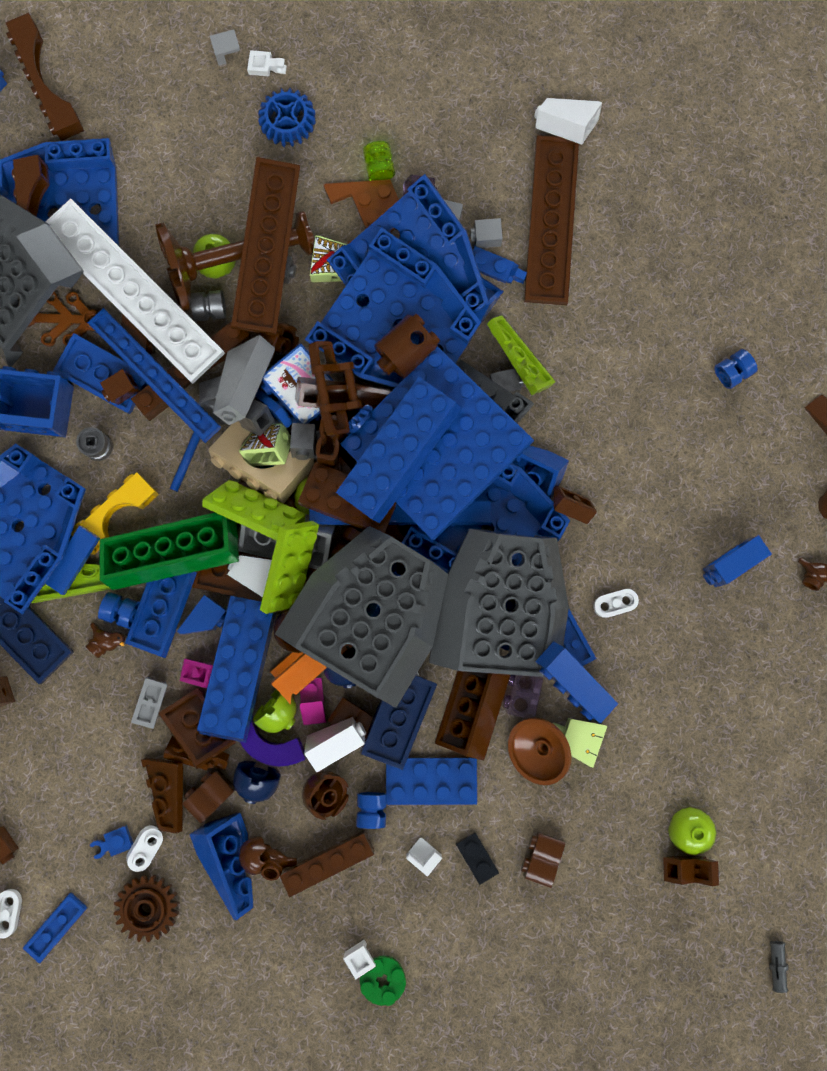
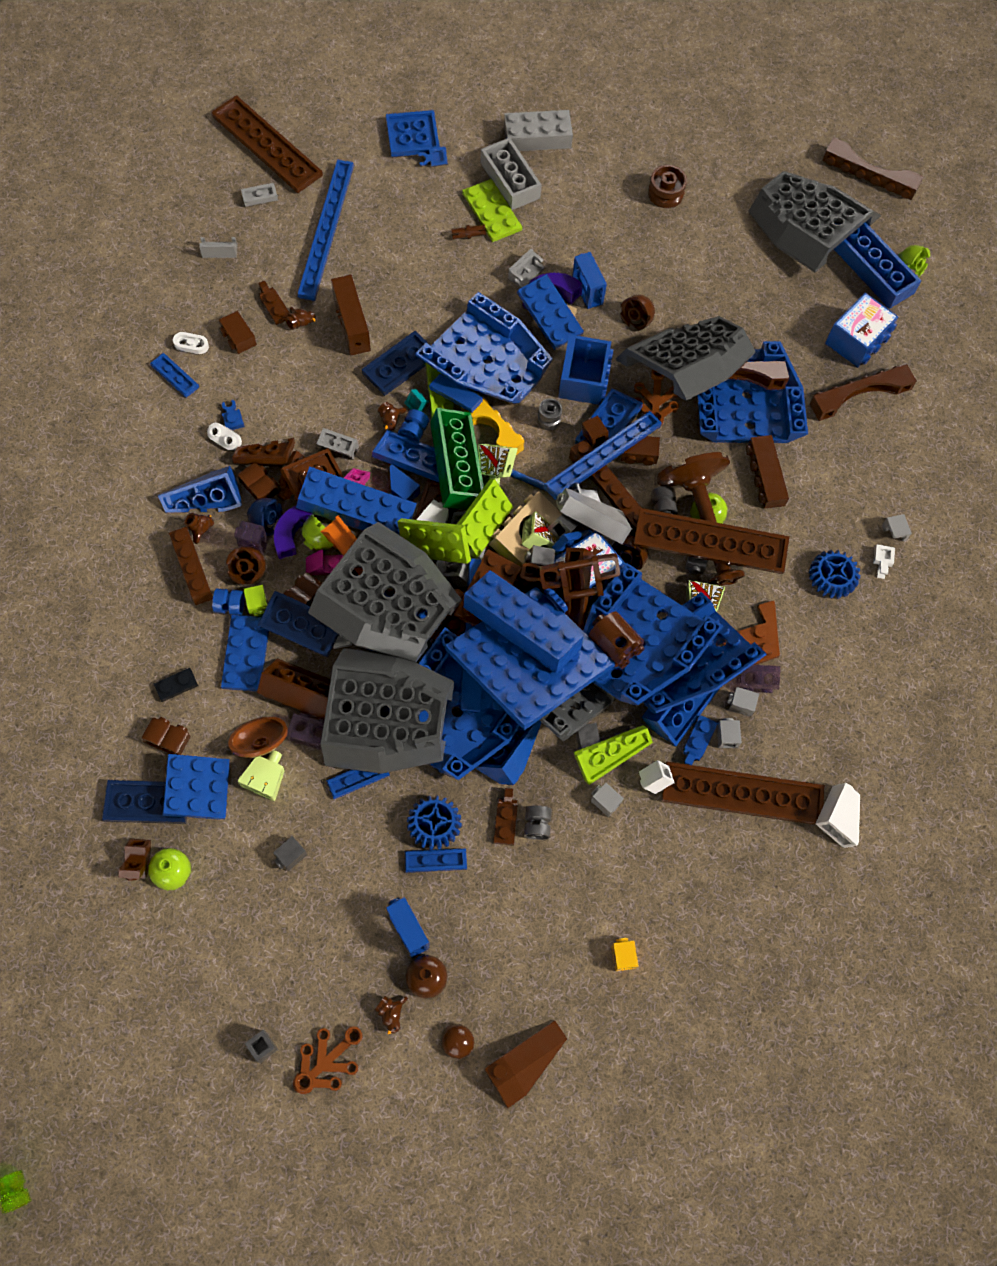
camera: 90 degrees right, 15 degrees down
(82, 611) = (416, 400): none -> teal tile
(135, 293) = (672, 441): white plate -> none
(136, 919) = (188, 429): reddish brown gear -> none
(159, 188) = (767, 472): none -> reddish brown brick
(165, 504) = (496, 460): none -> torso
(250, 855) = (206, 506): reddish brown hair -> none
(290, 793) = (251, 536): none -> clear purple brick
(334, 743) = (286, 570): white slope -> none
(359, 959) = (109, 582): white panel -> none
(367, 776) = (256, 600): none -> lime brick
(378, 161) = (798, 645): clear neon green wheel -> none
(395, 975) = (87, 593): green plate -> none
(424, 856) = (183, 640): white panel -> none
(546, 308) = (656, 777): none -> white brick
(572, 361) = (606, 799): none -> light grey brick
(573, 505) = (473, 786): reddish brown slope -> none
(576, 682) = (312, 770): blue brick -> none
(598, 433) = (537, 815): none -> flat silver wheel
(600, 815) = (196, 787): none -> blue plate
(602, 468) = (506, 819): none -> reddish brown hinge
(615, 603) = (381, 820): white plate -> none
(620, 870) = (136, 802): none -> dark blue plate
(626, 544) = (426, 822): none -> blue gear
(653, 540) = (435, 860): none -> blue tile
(665, 699) = (289, 854): none -> flat silver brick
(736, 338) = (624, 955): none -> yellow brick
(738, 367) = (597, 957): blue wheel -> none
(778, 966) = (37, 935): dark grey pin -> none
(780, 538) = (426, 976): none -> reddish brown cylinder

